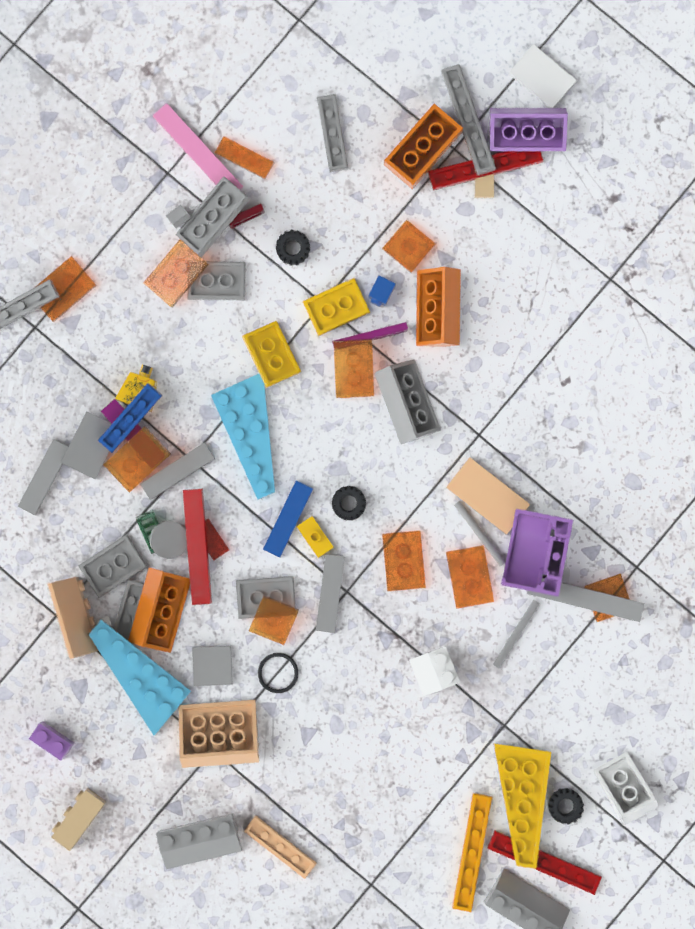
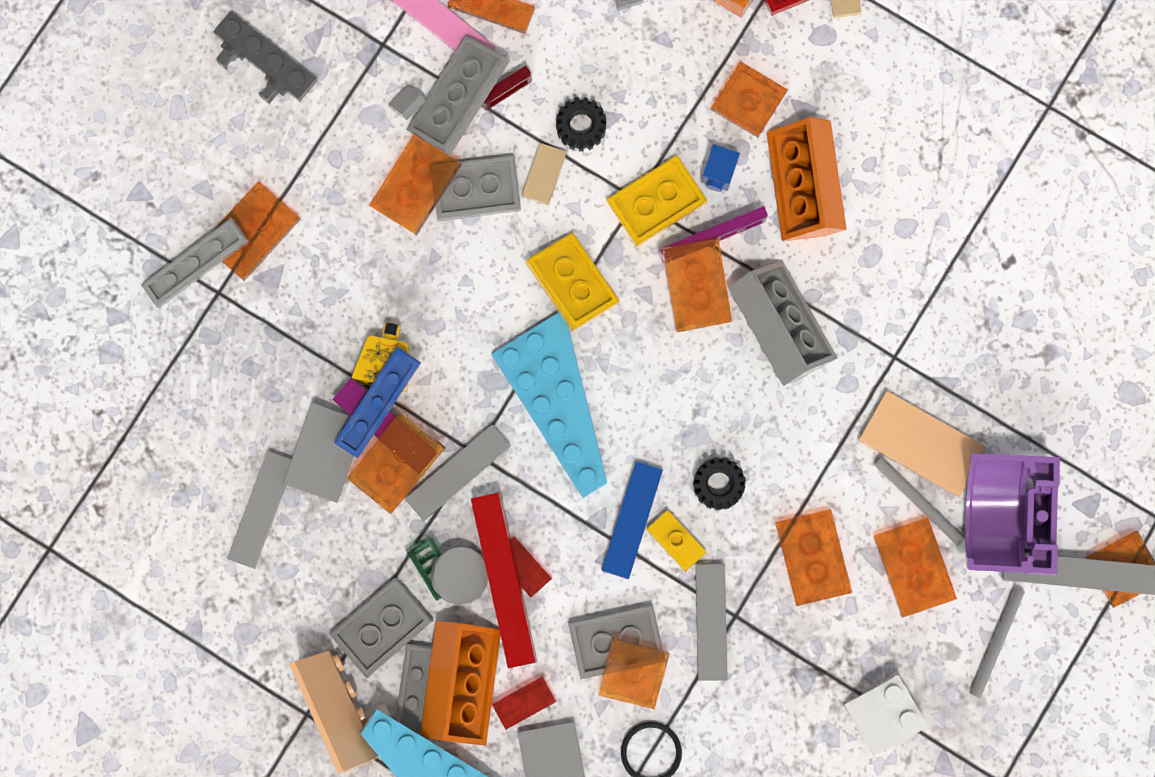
camera: 15 degrees left, 5 degrees down
(96, 182) = (280, 70): none -> dark grey hinge
(199, 628) = (524, 703): none -> clear red tile
(263, 278) = (544, 174): none -> tan tile

